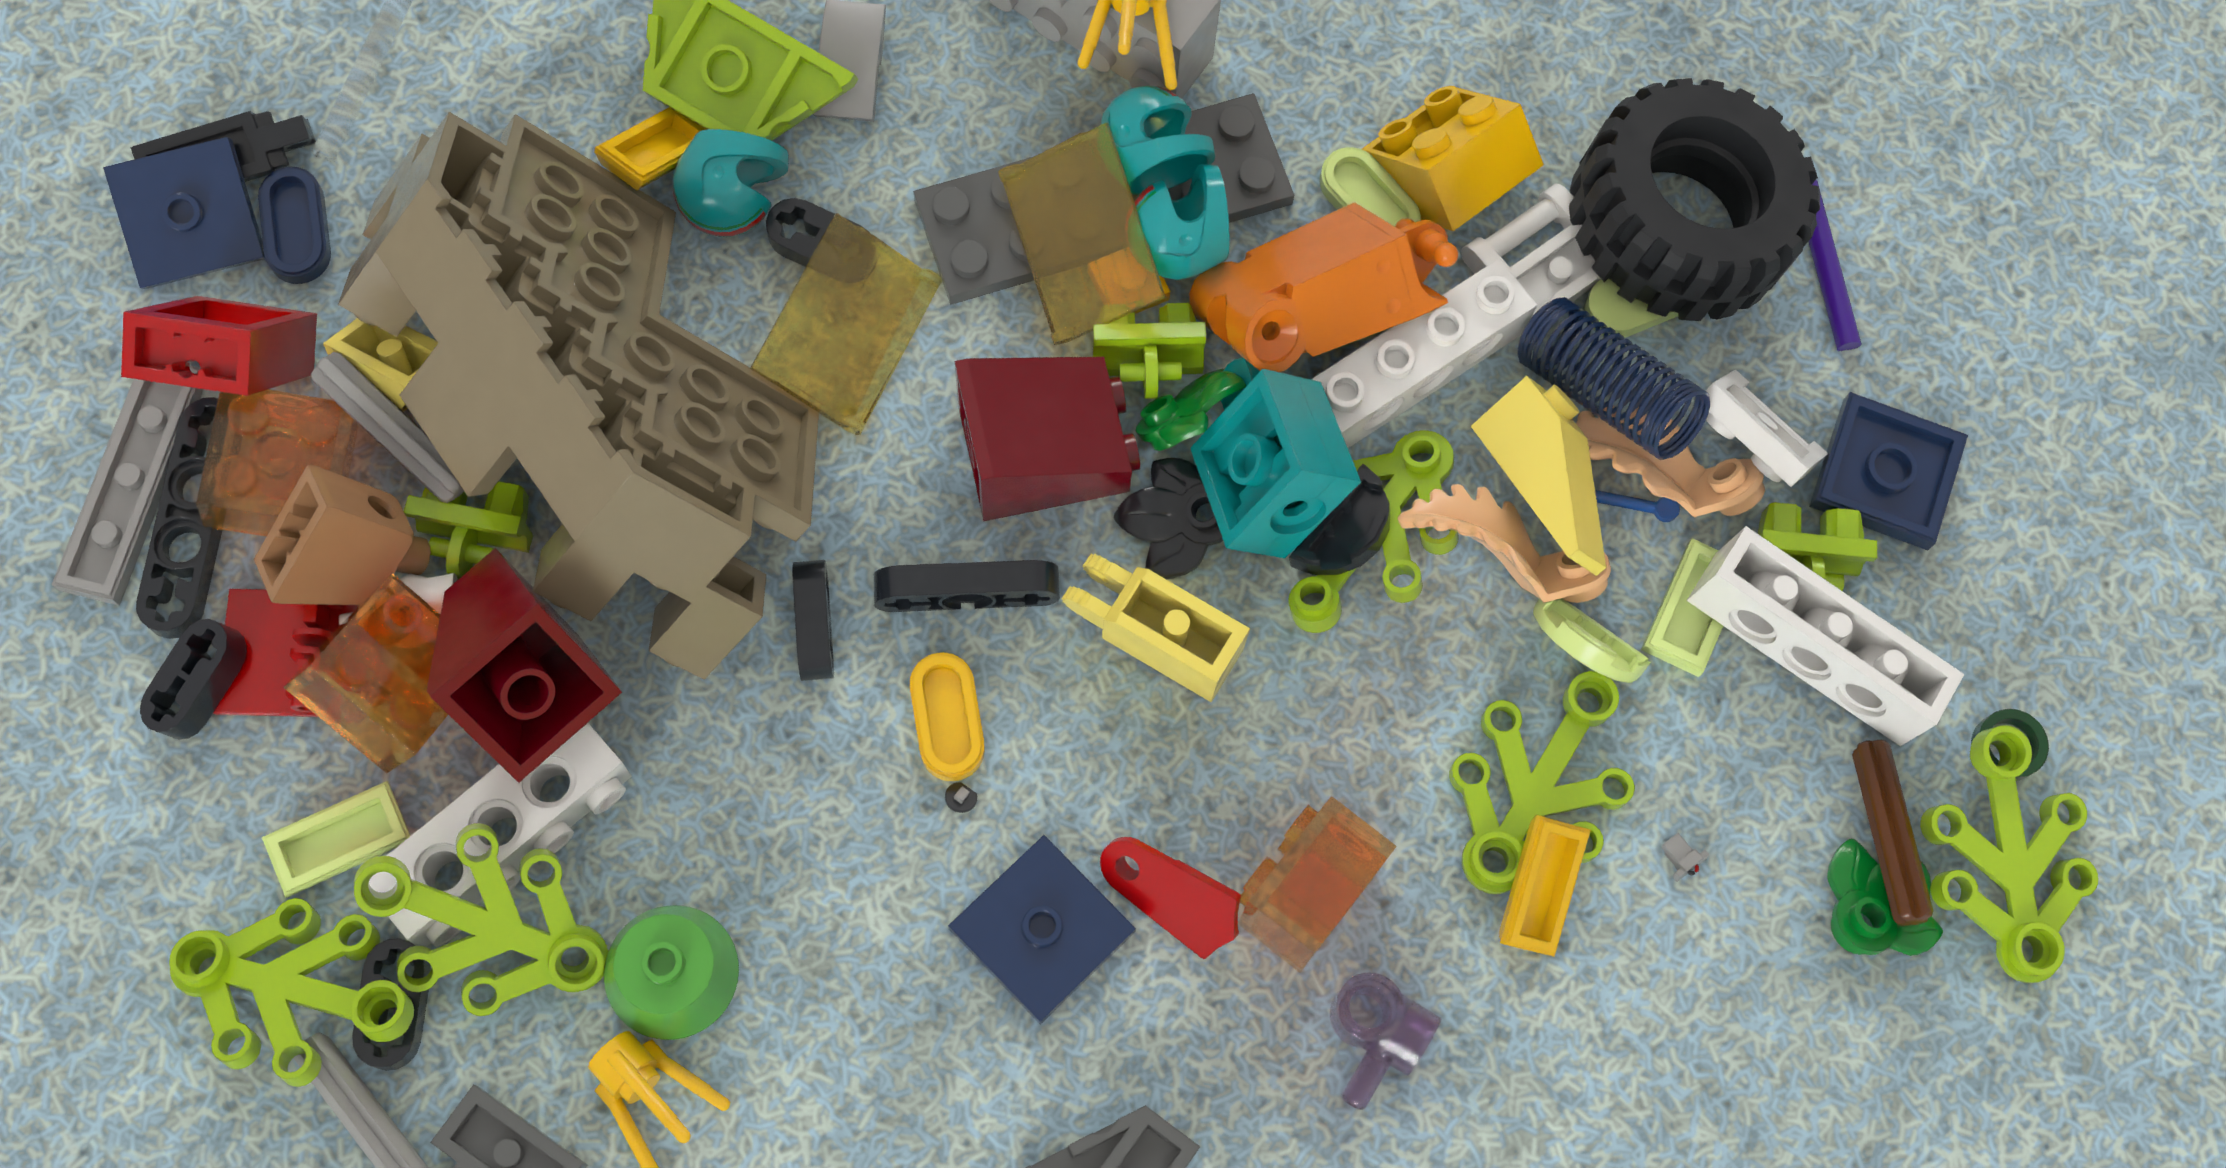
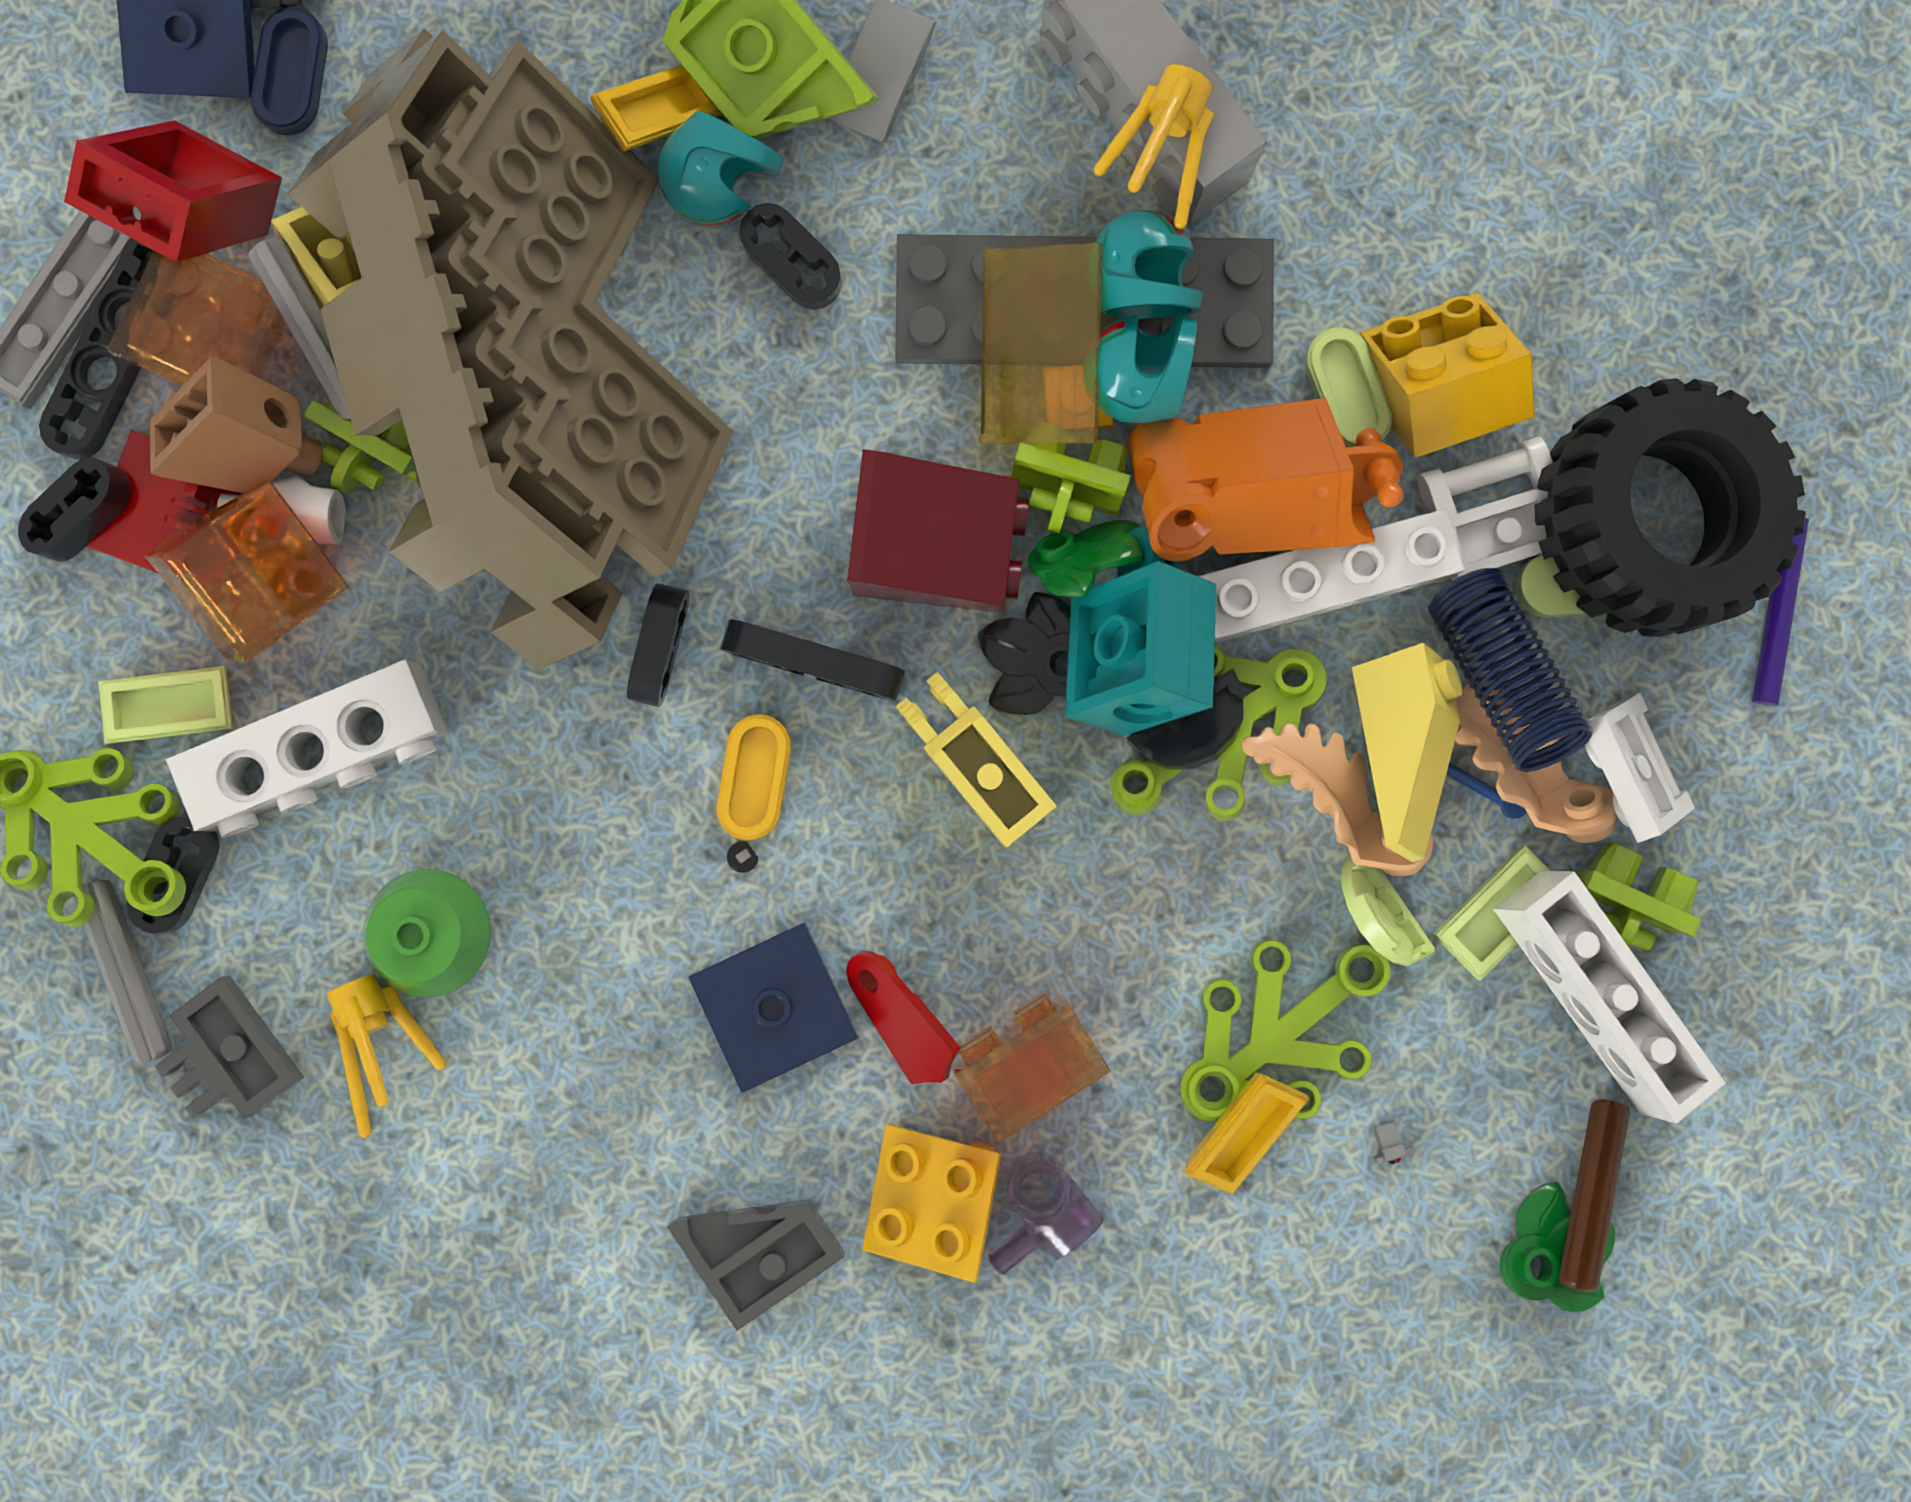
camera: 25 degrees right, 15 degrees up
(491, 928) = (270, 844): lime plant -> none
(513, 668) = (351, 616): dark red slope -> none
(846, 324) = (785, 355): clear yellow piece -> none
(1267, 1063) = (932, 1202): none -> yellow hinge
(1890, 470) = (1748, 844): dark blue plate -> none
(2013, 863) = (1700, 1263): lime plant -> none
(2032, 729) = (1716, 1148): dark green piece -> none

